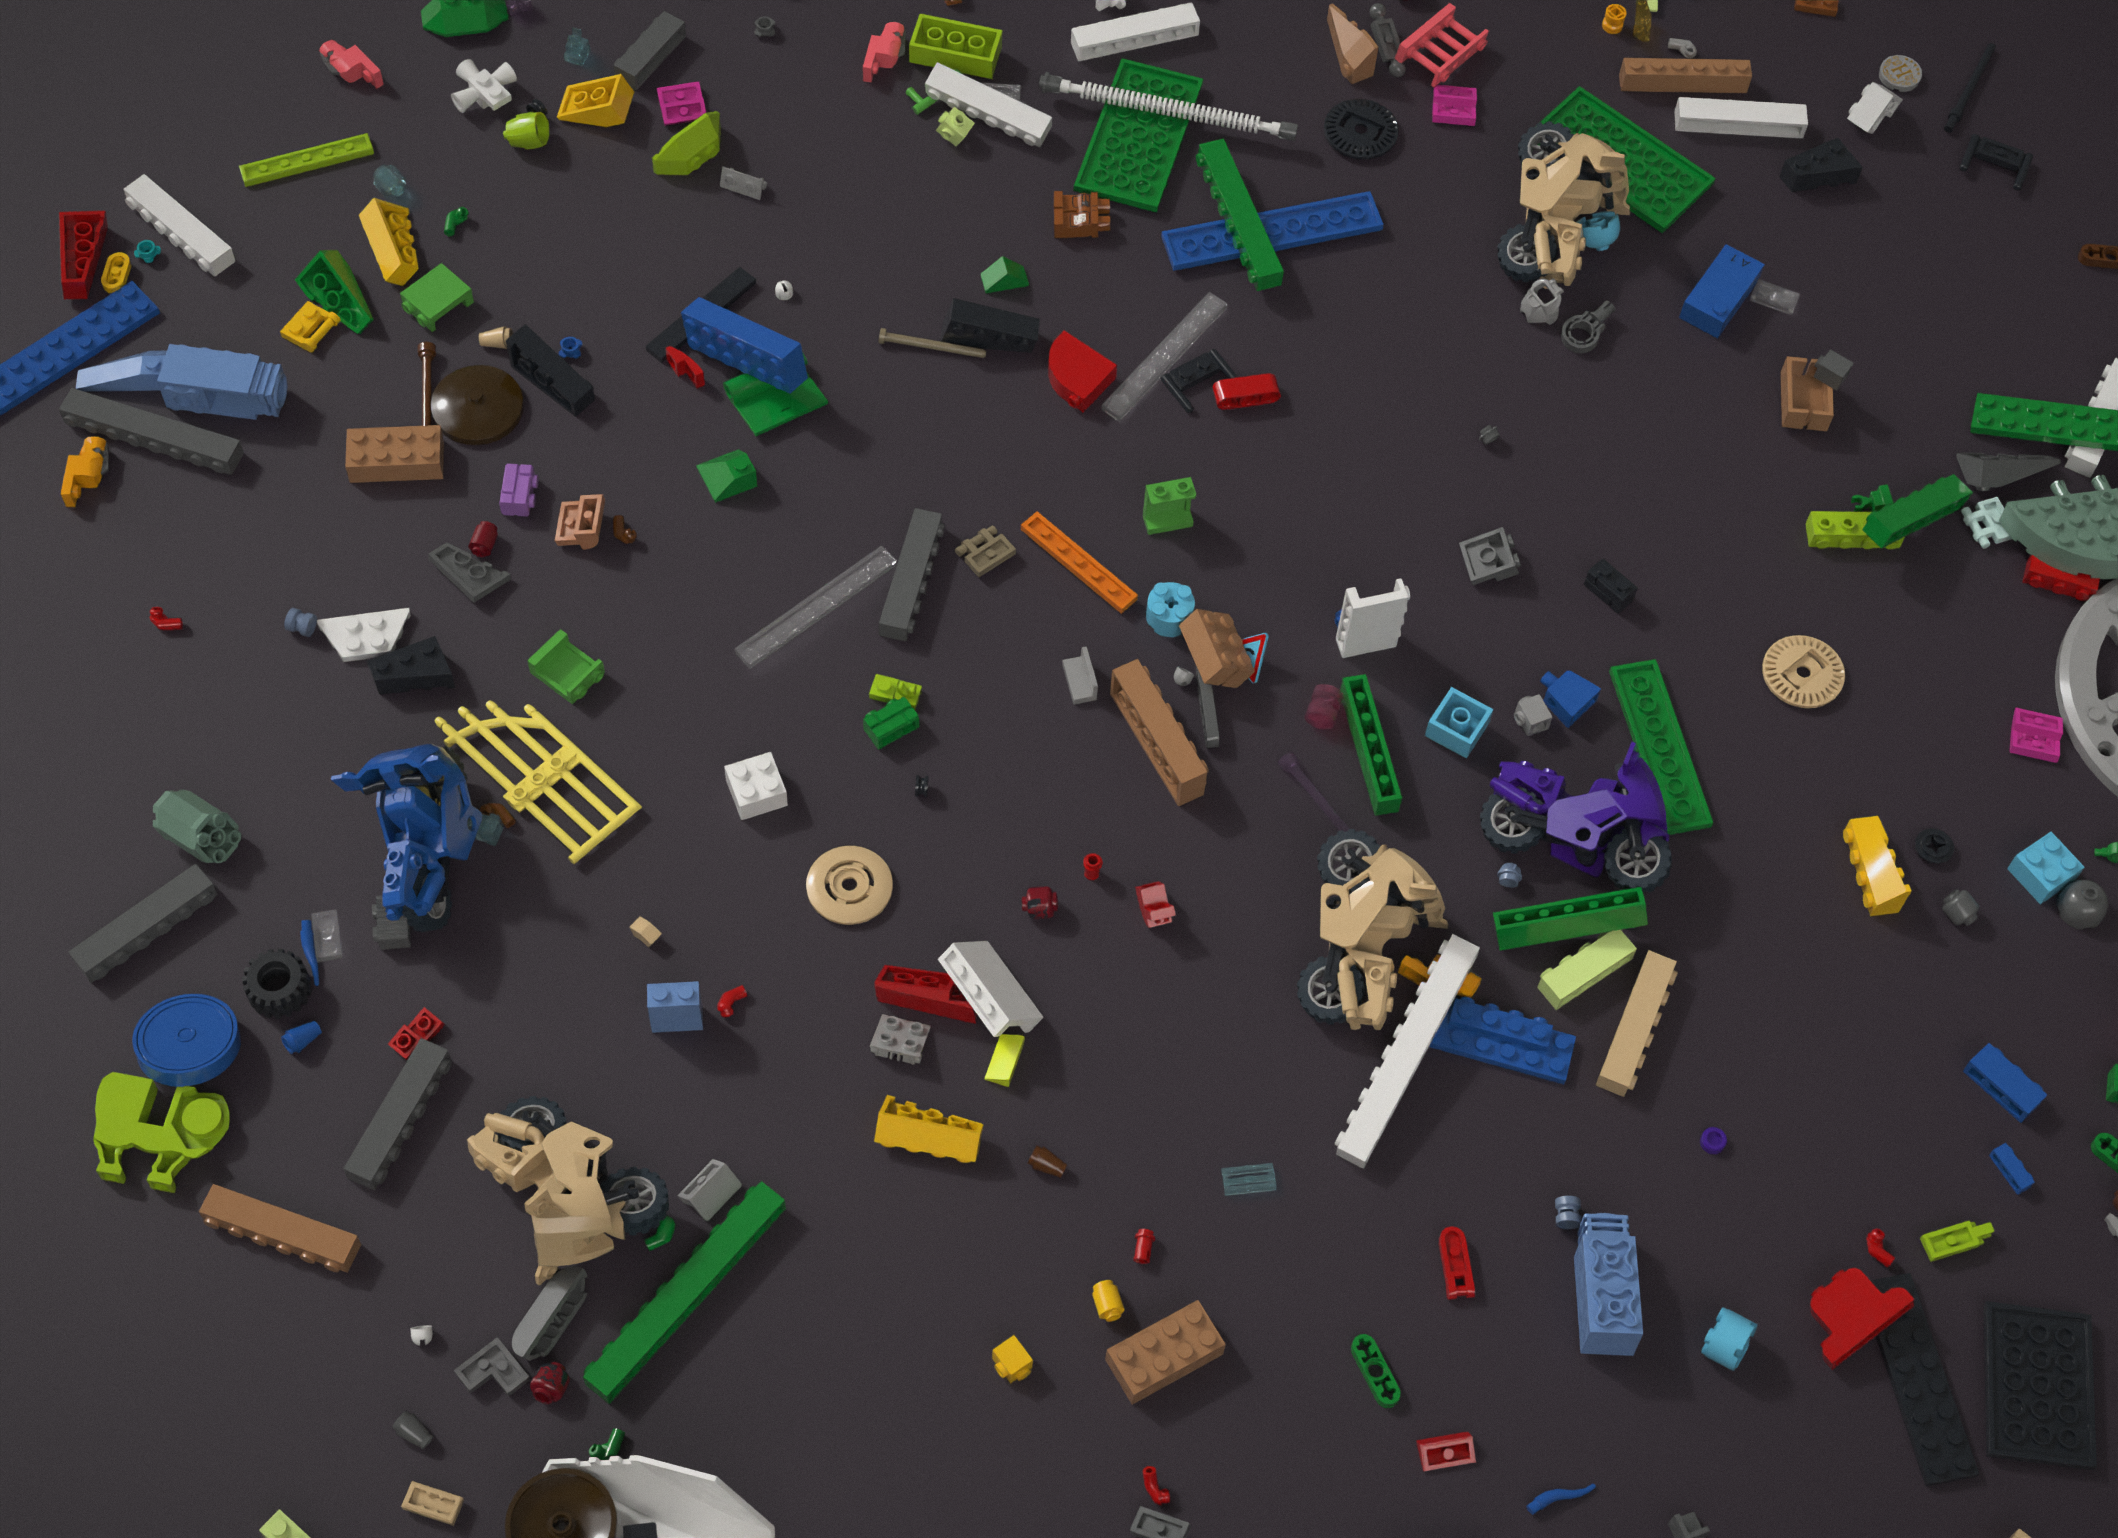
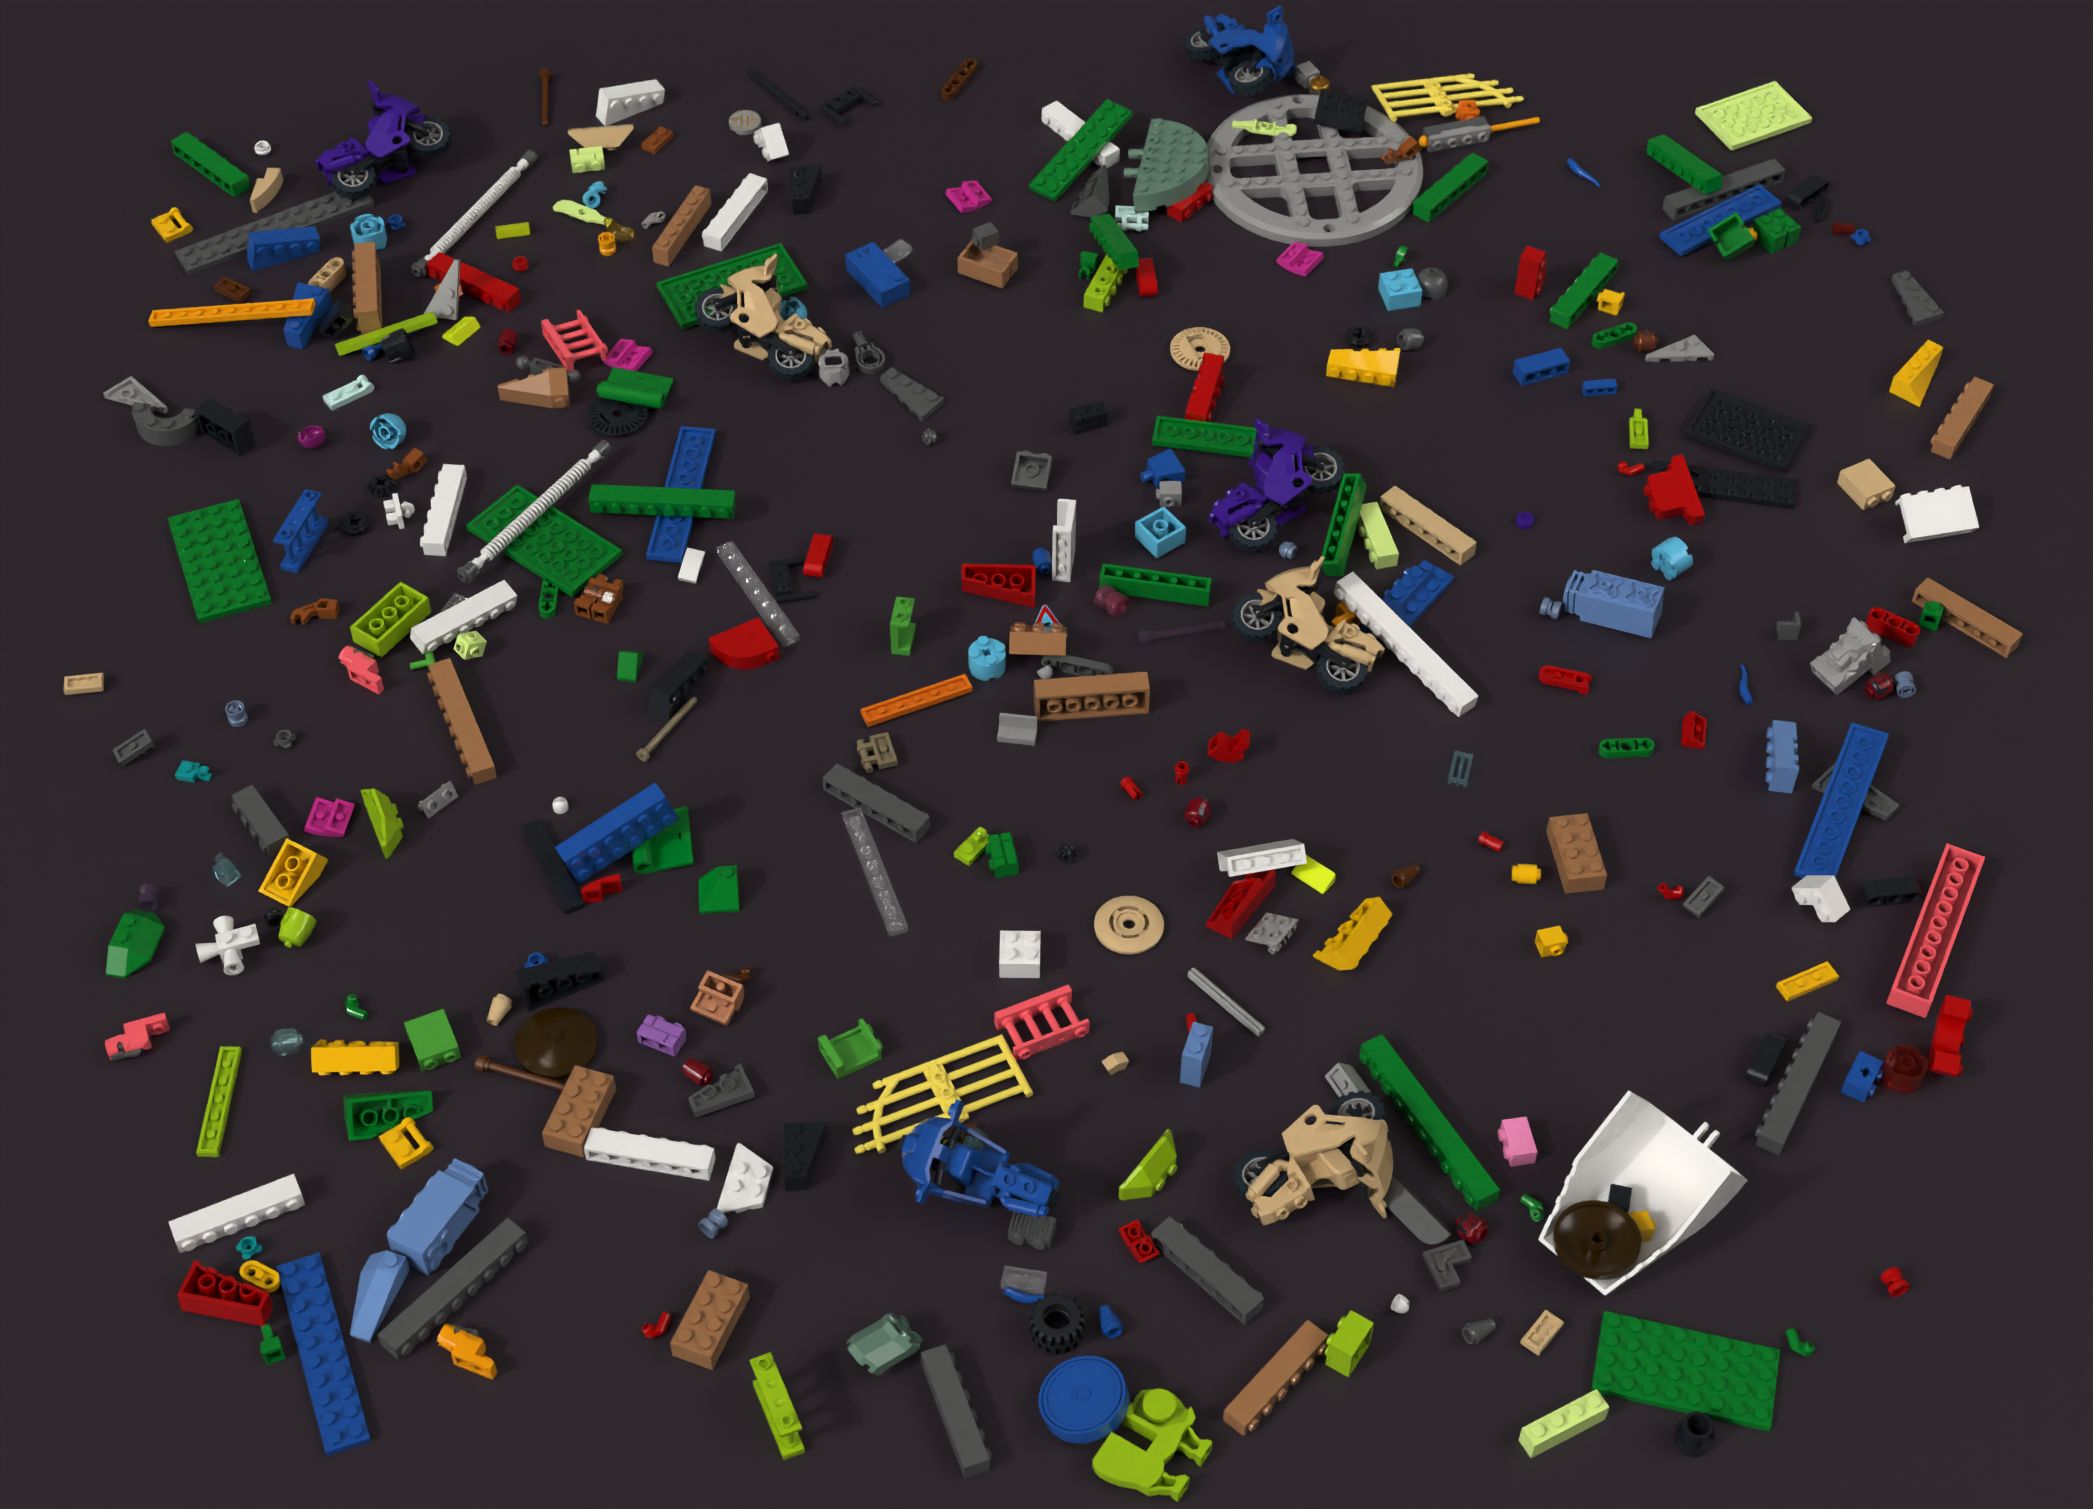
camera: 65 degrees left, 10 degrees down
(39, 314) = (271, 1347): none -> green piece
(93, 765) = (777, 1406): none -> lime fence
(182, 661) = (710, 1320): none -> medium nougat brick
(338, 1288) = (1348, 1343): none -> lime brick
(366, 535) = (649, 1153): none -> white brick
(515, 1016) = (1151, 1171): none -> lime wedge
(678, 817) = (1041, 1005): none -> coral fence
(693, 1401) = (1517, 1141): none -> bright pink brick
(779, 1021) = (1226, 1002): none -> light grey axle
(852, 161) = (462, 722): none -> medium nougat brick
(1049, 822) = (1132, 789): none -> red pin
(1071, 164) = (546, 590): none -> green beam
(1170, 277) = (691, 565): none -> white slope
(1295, 587) = (1001, 582): none -> red wedge
(1404, 129) = (635, 388): none -> green door
(1551, 397) = (916, 396): none -> dark grey wing
(1724, 697) = (1206, 388): none -> red wedge
(1892, 571) = (1146, 277): none -> red beam
(1918, 338) = (968, 196): none -> dark pink slope

